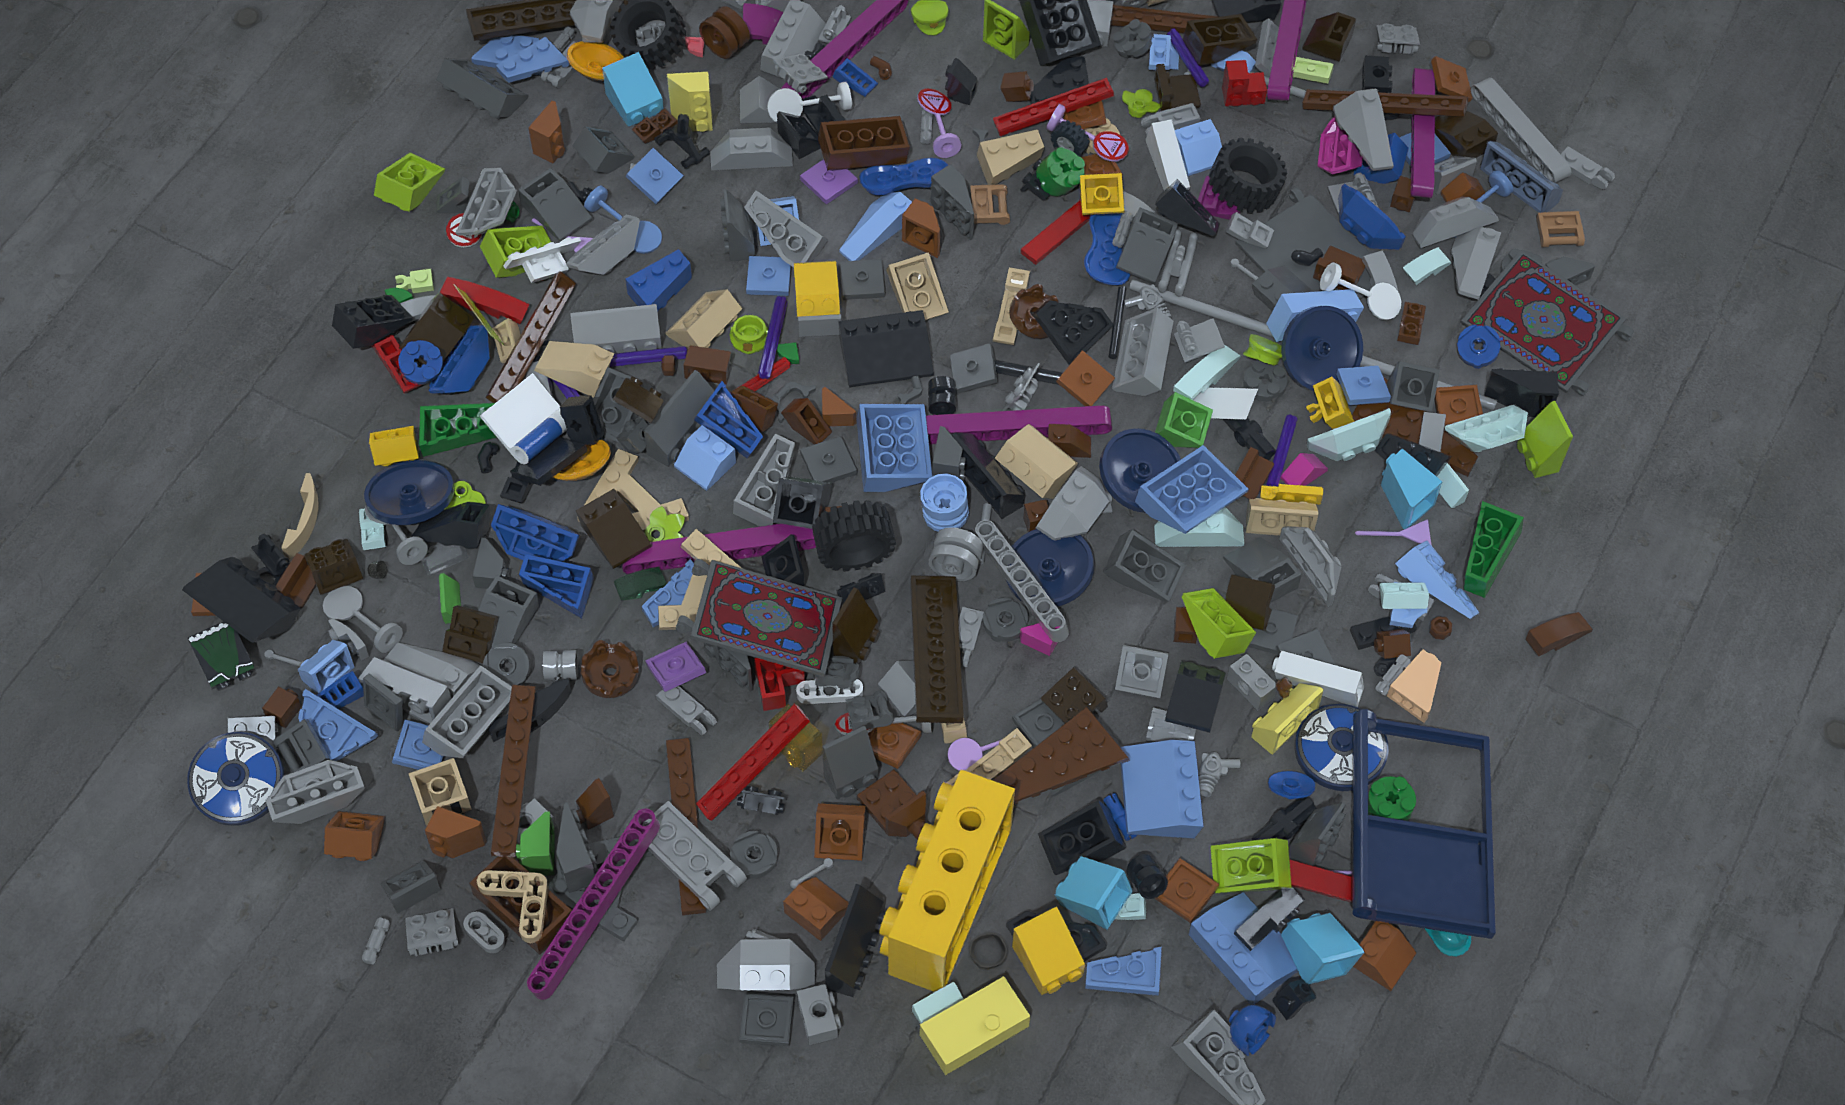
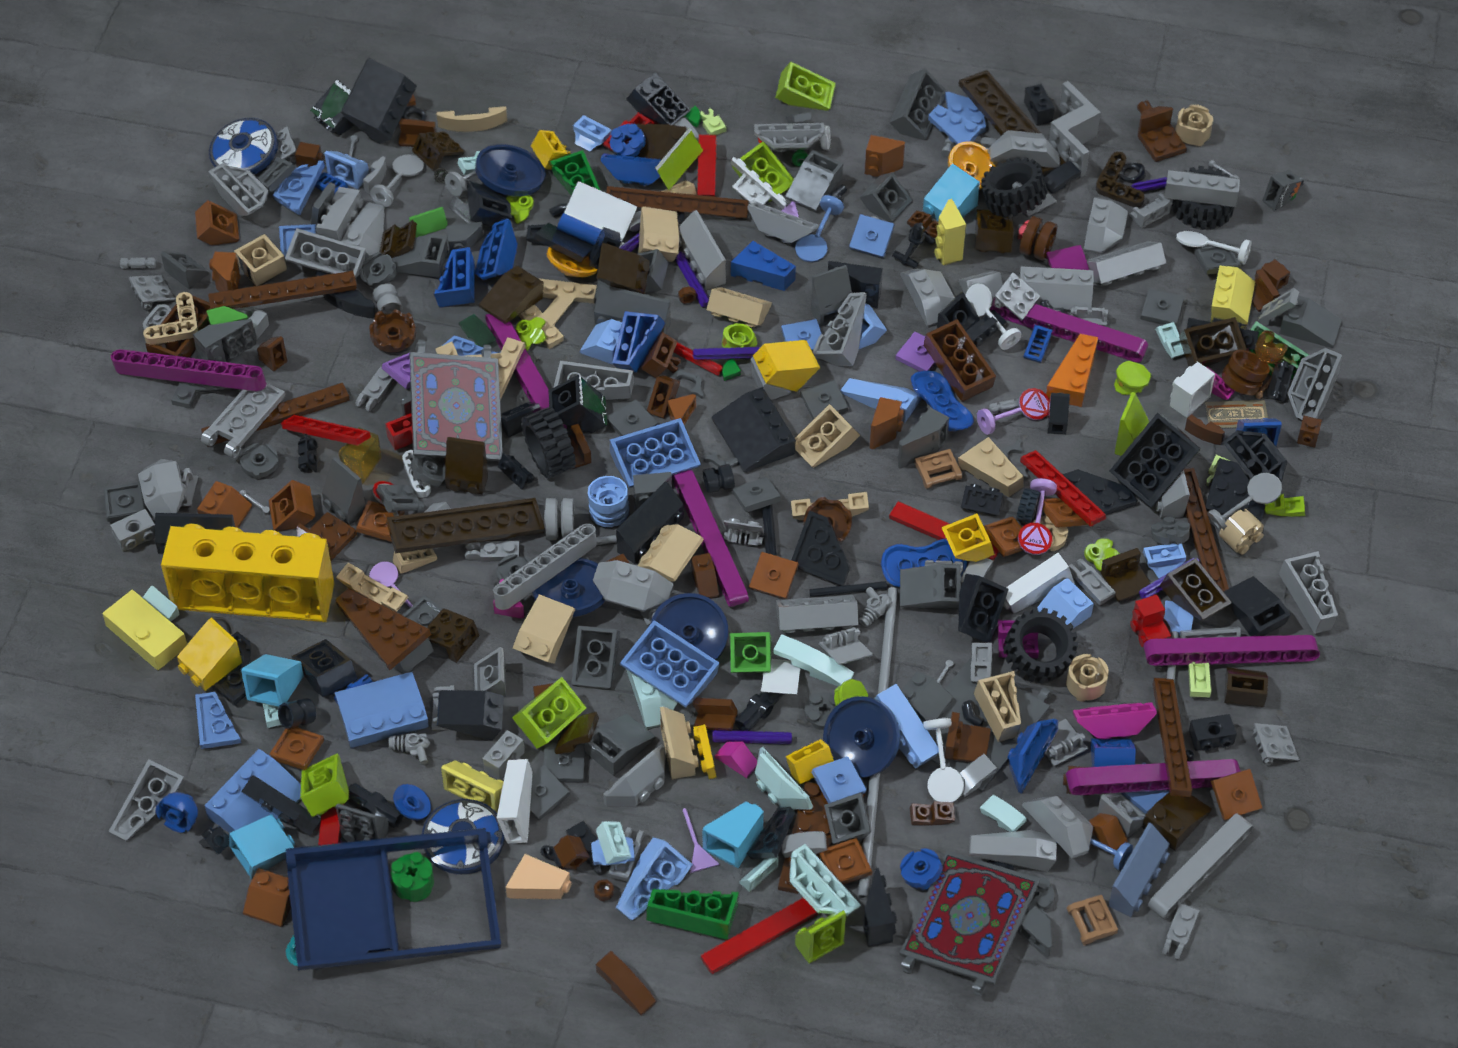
camera: 75 degrees right, 5 degrees down
(270, 555) = (430, 112): black hinge -> none
(382, 401) = (590, 133): none -> light blue slope
(691, 61) = (993, 232): none -> dark brown slope
(708, 362) = (695, 316): reddish brown panel -> none
(709, 211) = (863, 280): none -> black slope
(883, 67) = (1054, 363): reddish brown arm -> none
(907, 55) = (1075, 370): none -> orange wedge
(1016, 86) = (1074, 456): reddish brown brick -> none
(1060, 171) = (982, 493): green brick -> none
(1105, 602) = (544, 629): none -> tan slope
(1177, 264) = (921, 617): light grey piece -> none
(1283, 687) = (494, 771): reddish brown arm -> none
(1294, 150) = (1087, 677): none -> tan brick
(1311, 227) = (999, 704): none -> tan wedge
(1365, 124) = (1126, 719): light grey wedge -> none
(1392, 674) = (552, 860): light grey axle -> none
(1521, 504) = (758, 935): none -> red tile

